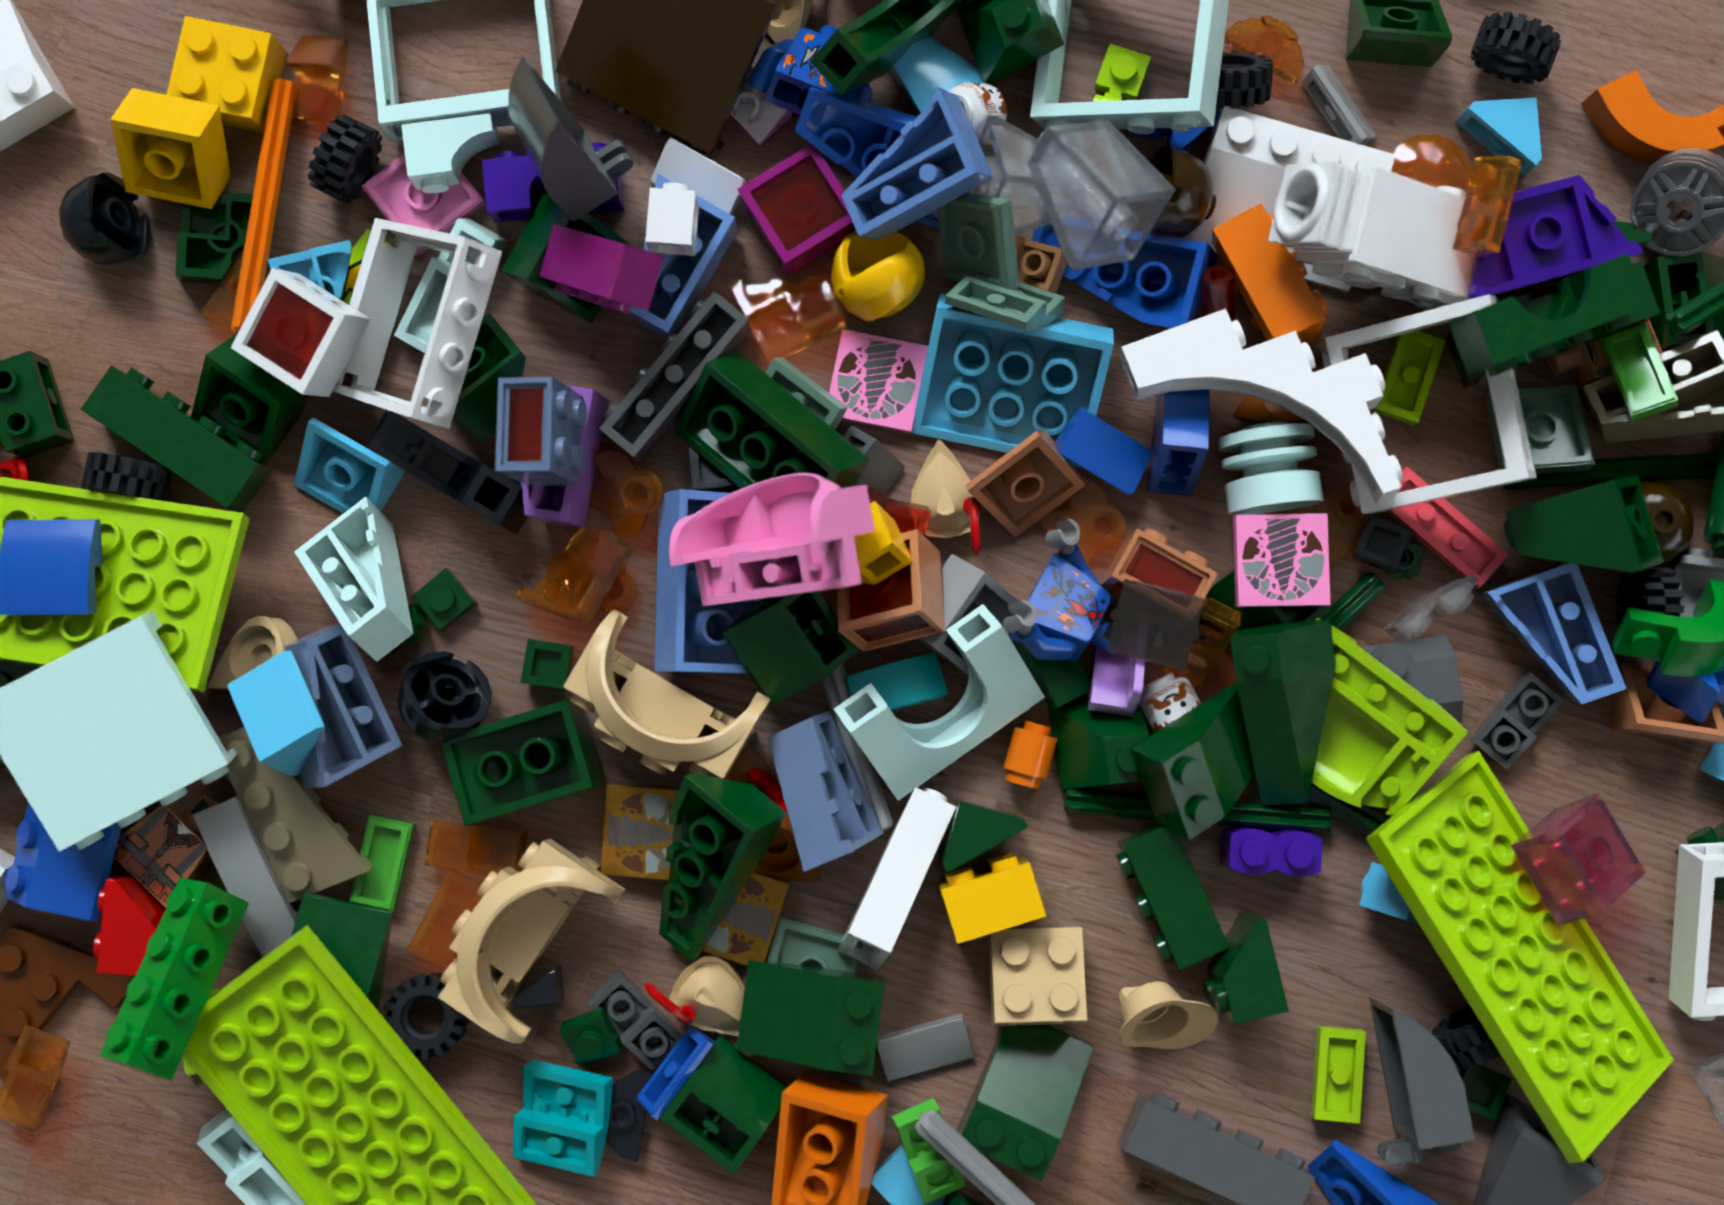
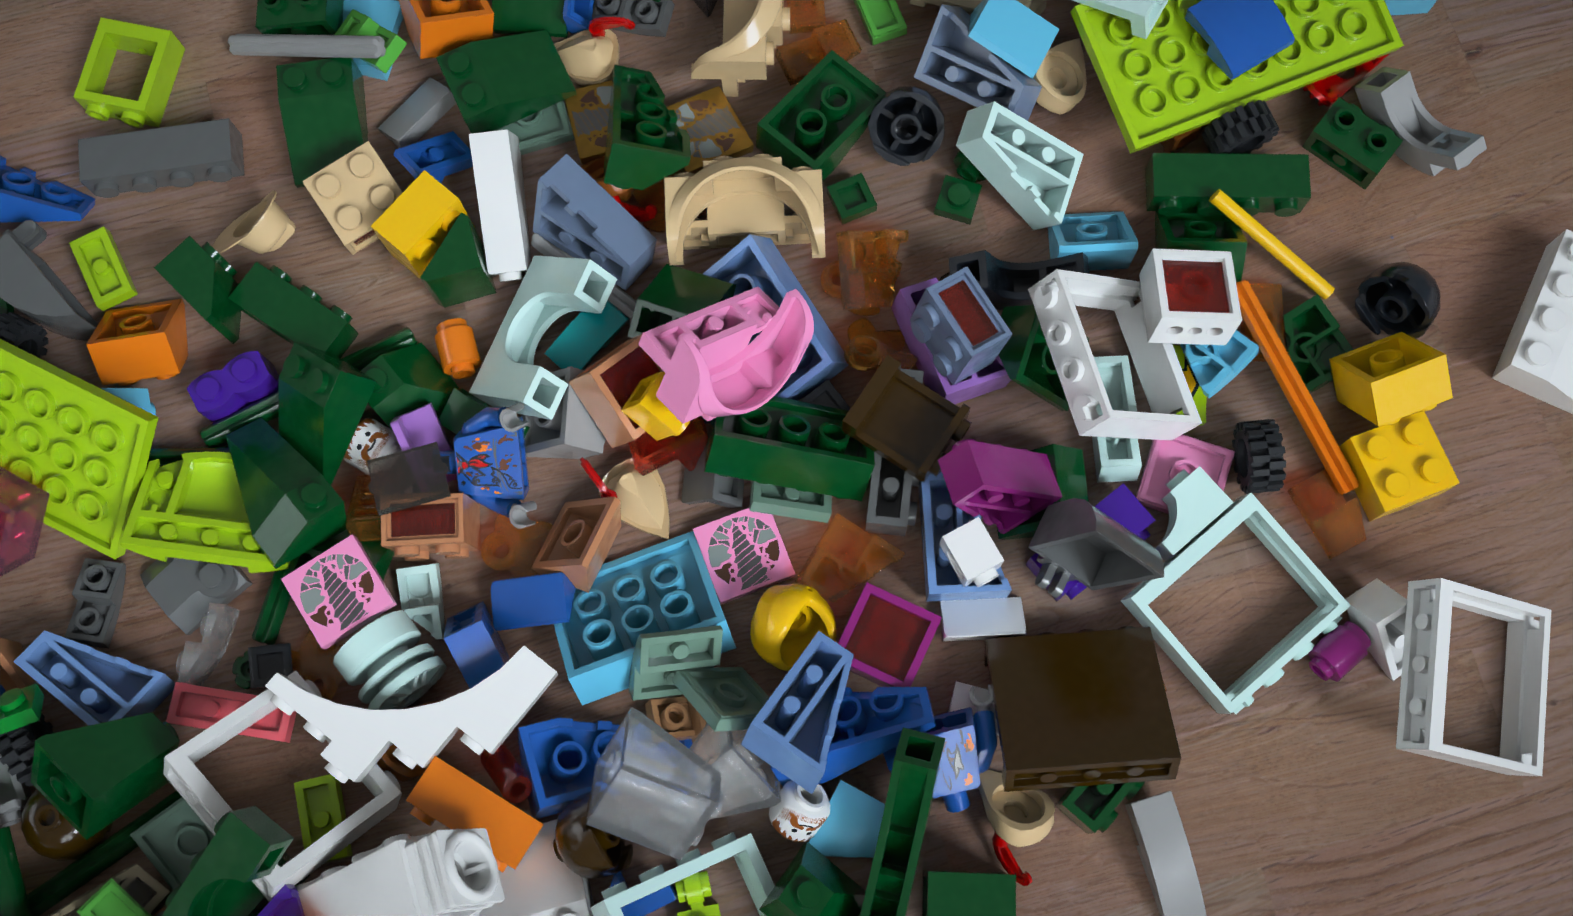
camera: 150 degrees right, 10 degrees down
(181, 351) = (1271, 244): none -> yellow bar
(647, 382) = (905, 421): none -> dark brown panel
(935, 973) = (437, 156): none -> blue slope
(1204, 524) = (422, 596): none -> light aqua slope
(1341, 965) = (140, 343): none -> orange slope

